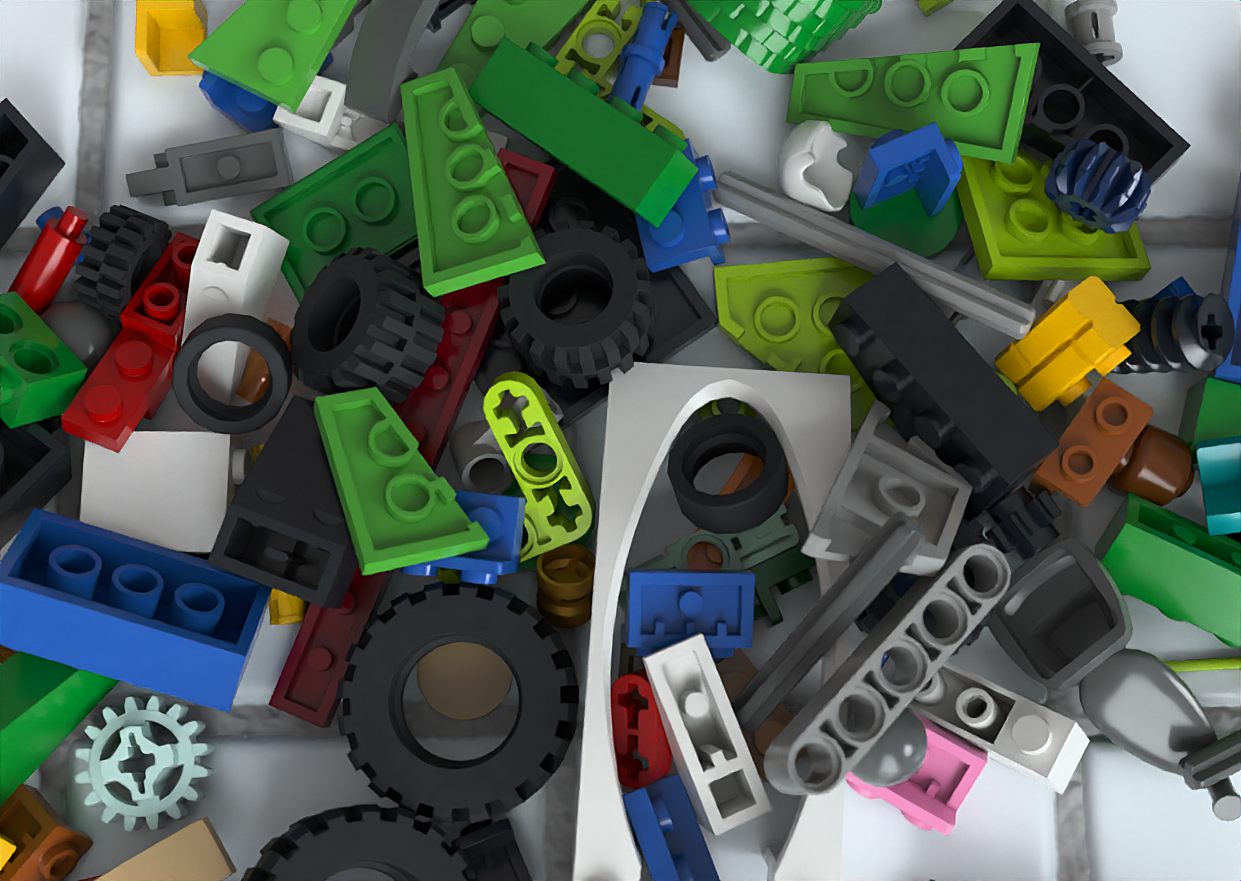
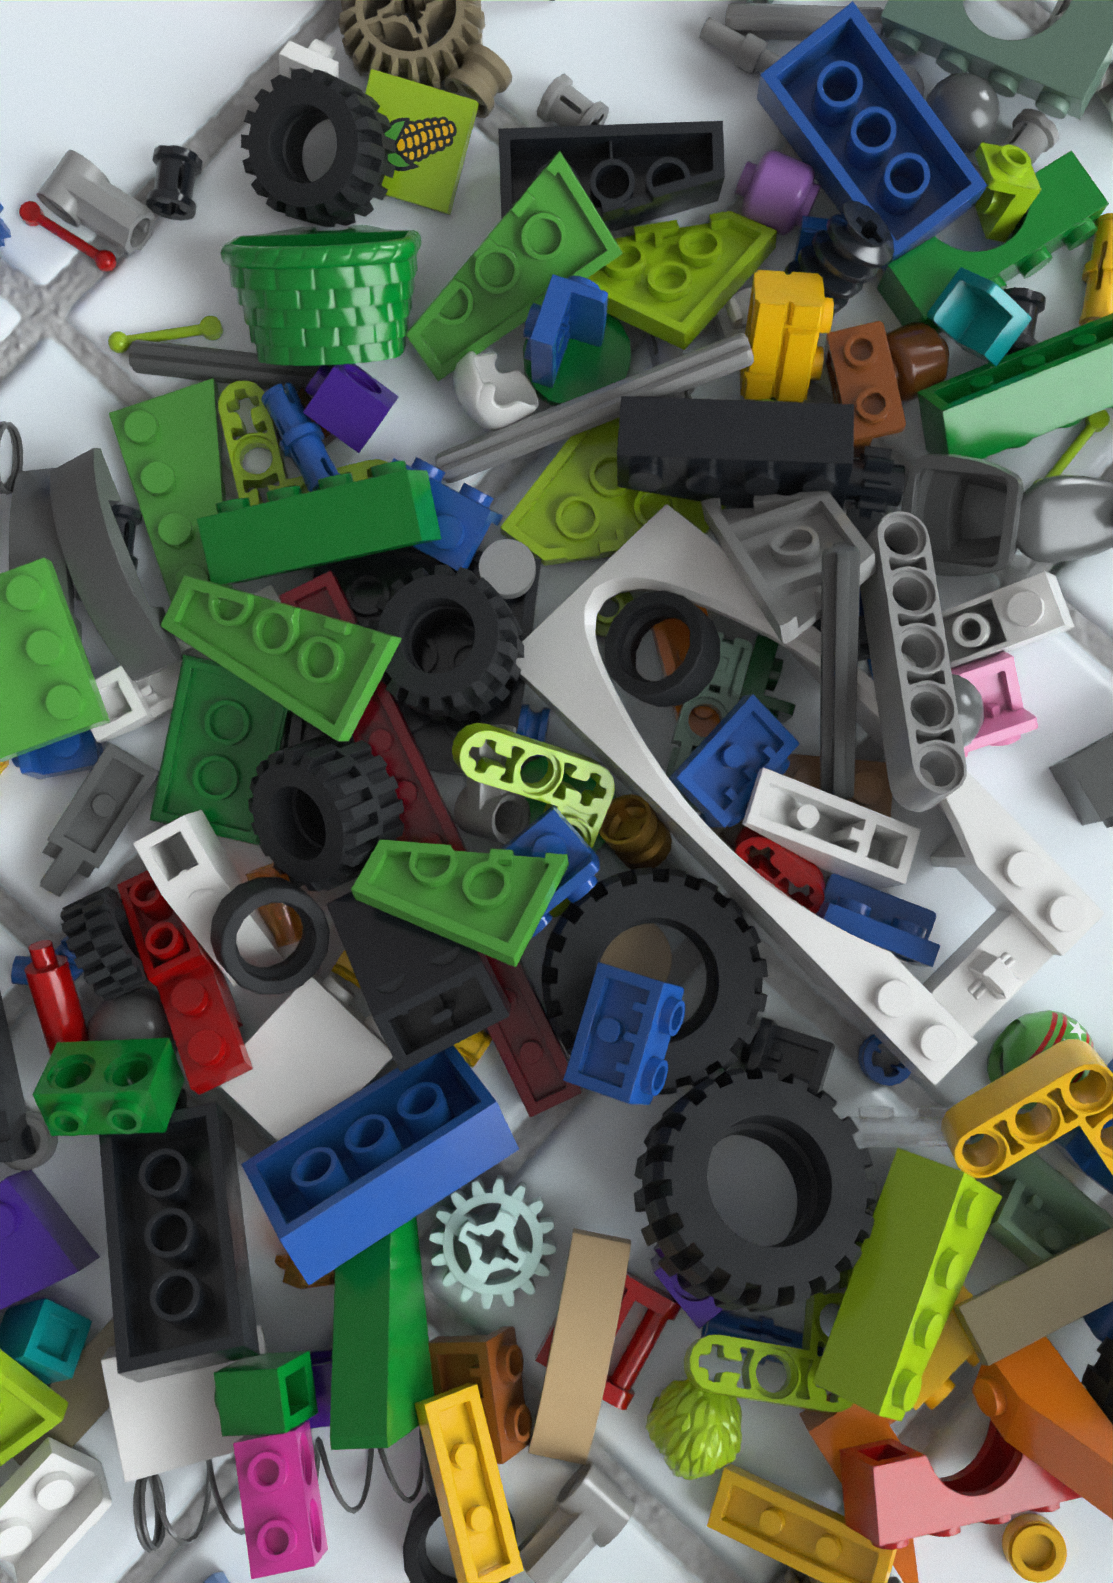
camera: 50 degrees left, 5 degrees up
(387, 713) = (625, 1035): none -> blue bracket
(581, 431) = (533, 723): none -> blue bush
(684, 300) = (508, 567): none -> light grey tile
(701, 70) = (348, 403): none -> dark purple brick
(1098, 186) = (694, 209): dark blue gear -> none
(1184, 241) = (777, 191): none -> medium lavender head

